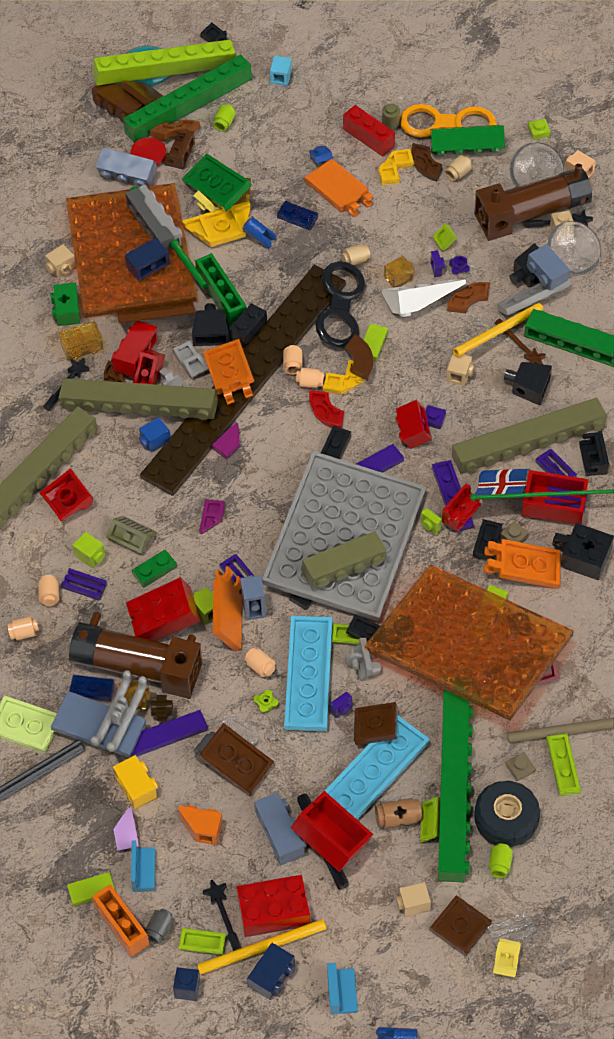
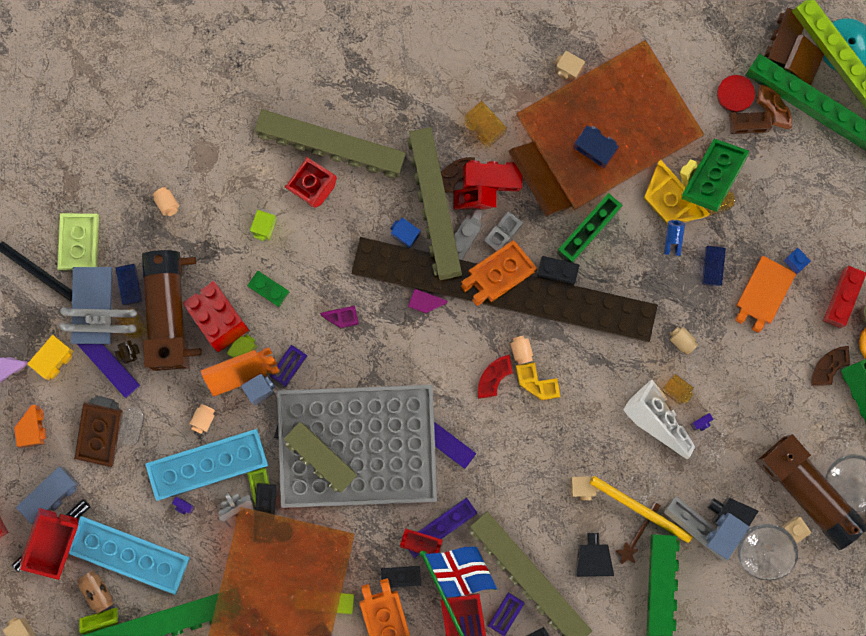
camera: 70 degrees right, 25 degrees up
(48, 590) = (210, 207): light nougat brick -> none
(66, 304) = (517, 101): green brick -> none
(76, 368) = (456, 132): black piece -> none
(85, 581) = (231, 218): dark purple tile -> none
(126, 167) = (704, 80): sand blue brick -> none
(130, 534) = (296, 254): olive panel -> none
(159, 225) = (639, 142): piece -> none
(210, 327) = (546, 235): black torso -> none
(224, 117) = (807, 148): lime brick -> none
(266, 706) = (173, 437): lime plate -> none
(292, 359) = (536, 326): light nougat brick -> none
(336, 442) = (455, 400): black tile -> none
(339, 303) = (617, 347): black bar -> none
(362, 357) = (561, 390): reddish brown tile -> none
(375, 339) = (588, 393): lime tile -> none
(375, 723) = (173, 542): reddish brown tile -> none
(397, 159) = (822, 337): yellow tile -> none
(413, 424) = (501, 465): red brick -> none
(430, 521) = (400, 517): lime plate -> none
(435, 416) = (522, 480): dark purple plate -> none
(444, 237) = (738, 418): lime plate -> none
(458, 168) = (832, 402): tan brick -> none
(459, 264) = (717, 445): dark purple plate -> none
(467, 296) = (677, 464): dark orange tile -> none
(514, 532) = (417, 599): dark tan plate -> none
(582, 218) = (815, 543): black piece -> none

